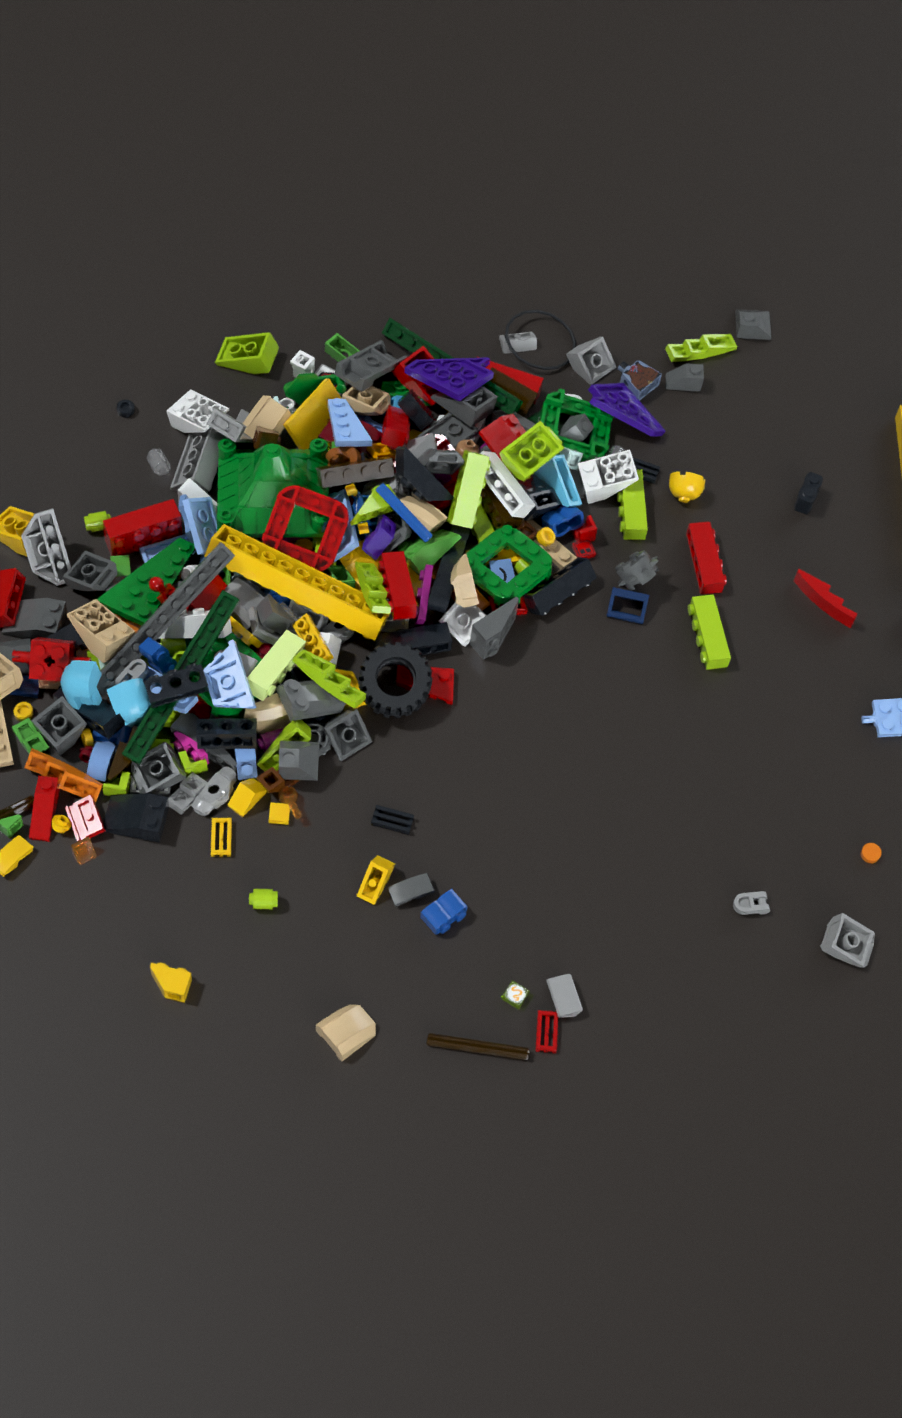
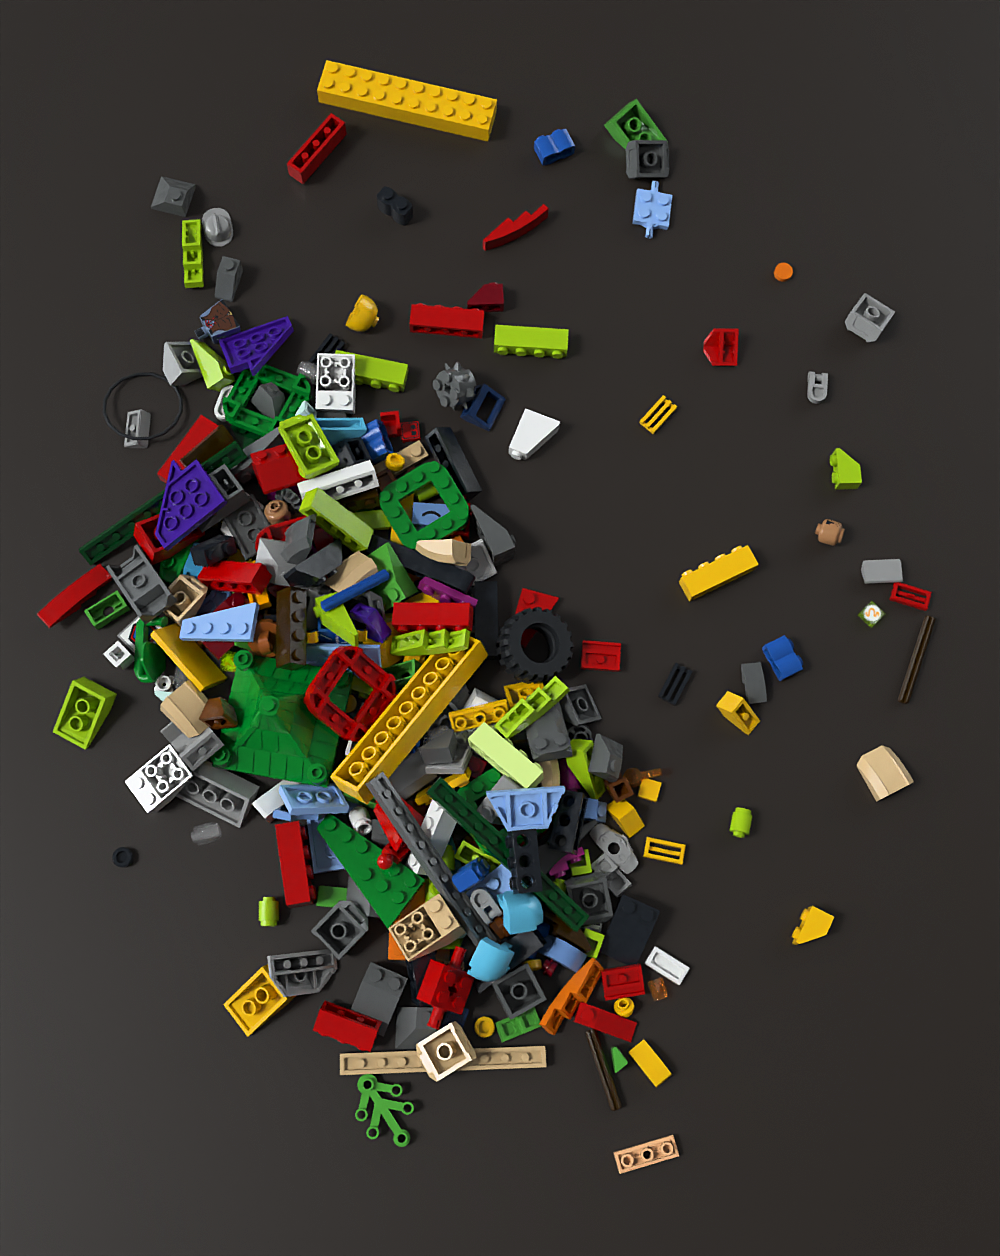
camera: 75 degrees left, 15 degrees up
(108, 857) = (666, 965): none -> white tile
(347, 323) = (74, 595): none -> red slope
(403, 747) = (600, 656): none -> red plate
(518, 838) = (718, 573): none -> yellow brick
(592, 937) = (830, 532): none -> medium nougat head
(600, 375) = (212, 366): none -> lime slope
(611, 648) = (532, 434): none -> white slope
(663, 943) = (846, 471): none -> lime slope
(672, 756) = (667, 403): none -> yellow tile
(735, 362) = (217, 227): none -> light grey piece
(741, 587) = (488, 298): none -> dark red slope
(764, 805) = (722, 346): none -> red slope
(841, 419) = (316, 148): none -> red brick

